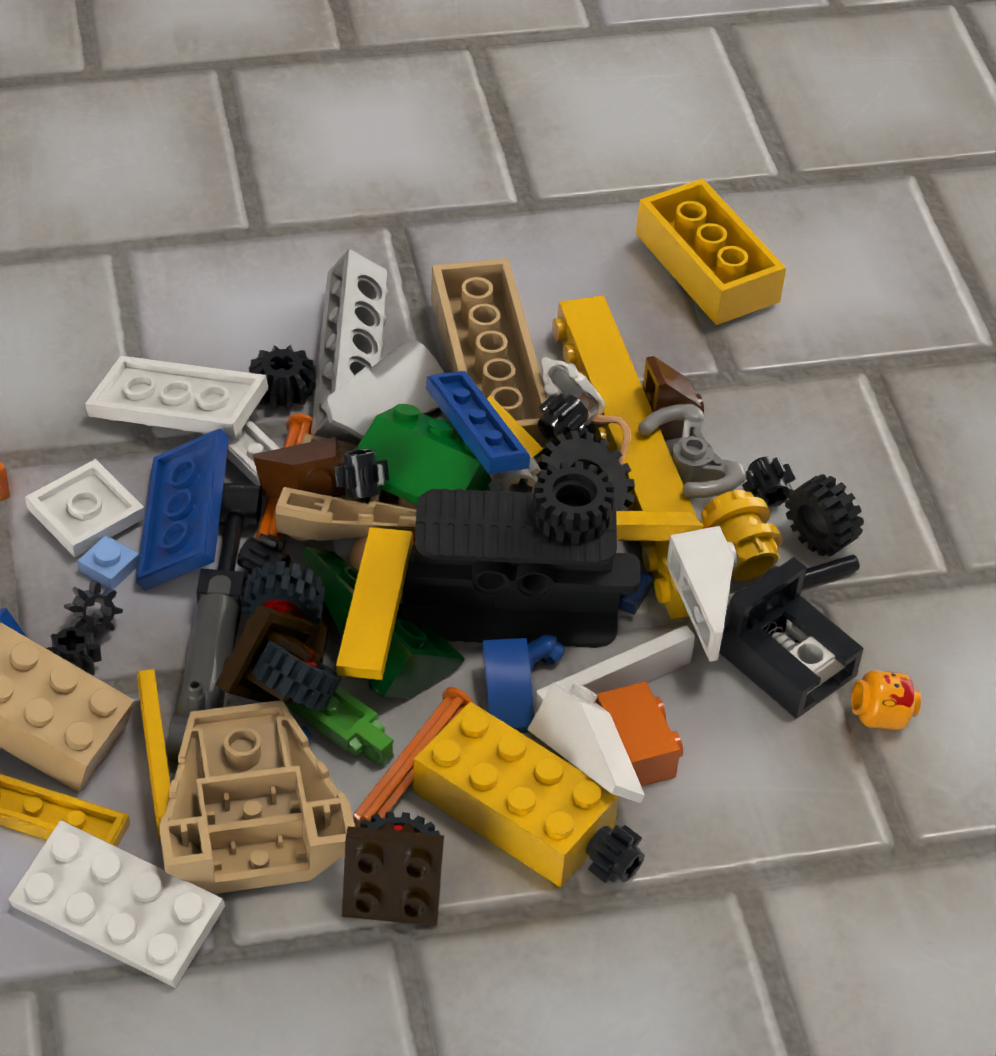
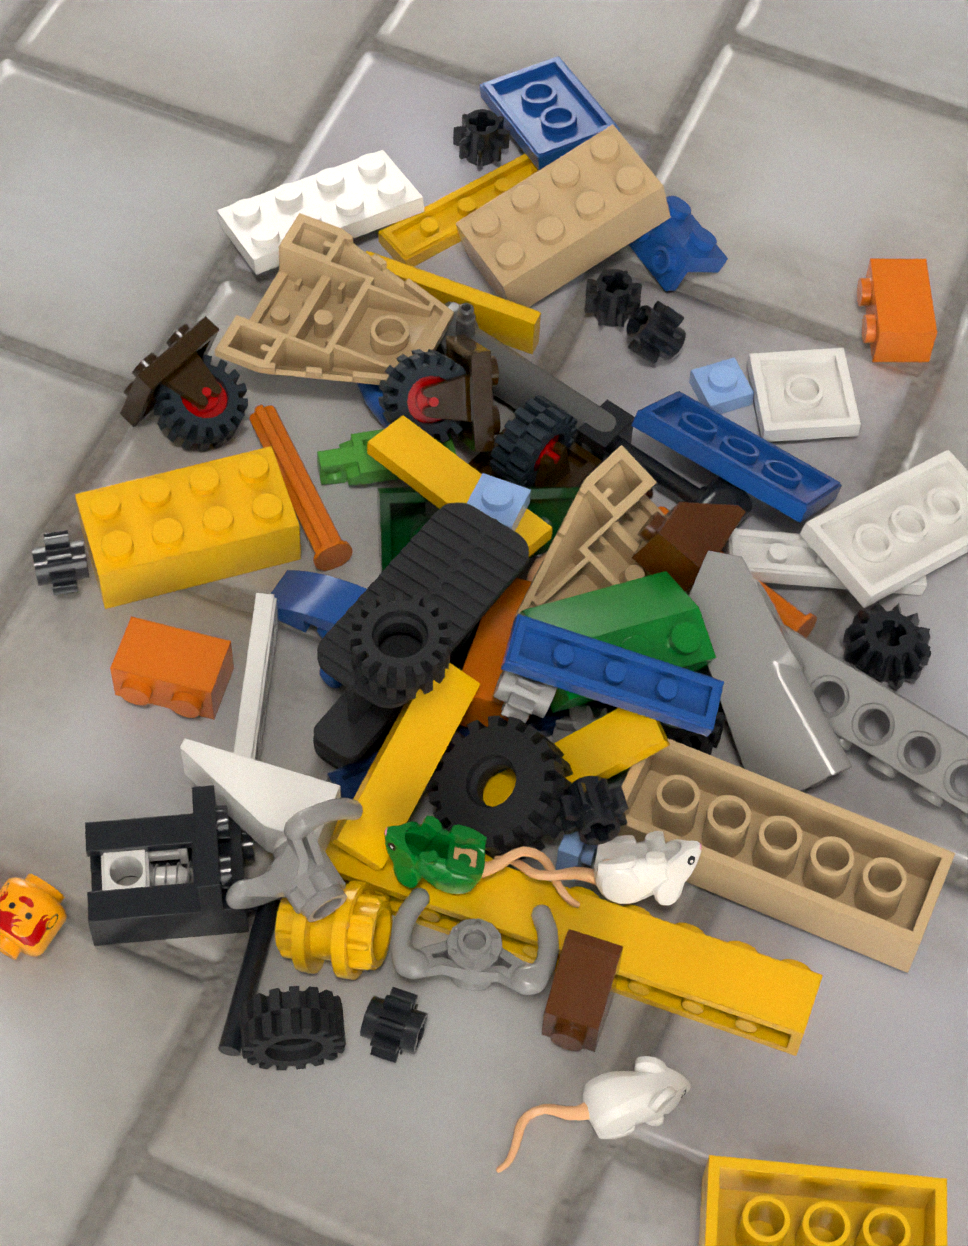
camera: 125 degrees right, 10 degrees up
(361, 473) = (622, 548): black gear -> none
(383, 557) = (500, 500): none -> light blue plate
(586, 738) = (173, 595): white slope -> none
(659, 473) = (451, 858): none -> green animal
(711, 371) = (616, 1102): none -> white animal
(745, 521) = (301, 866): none -> light grey piece

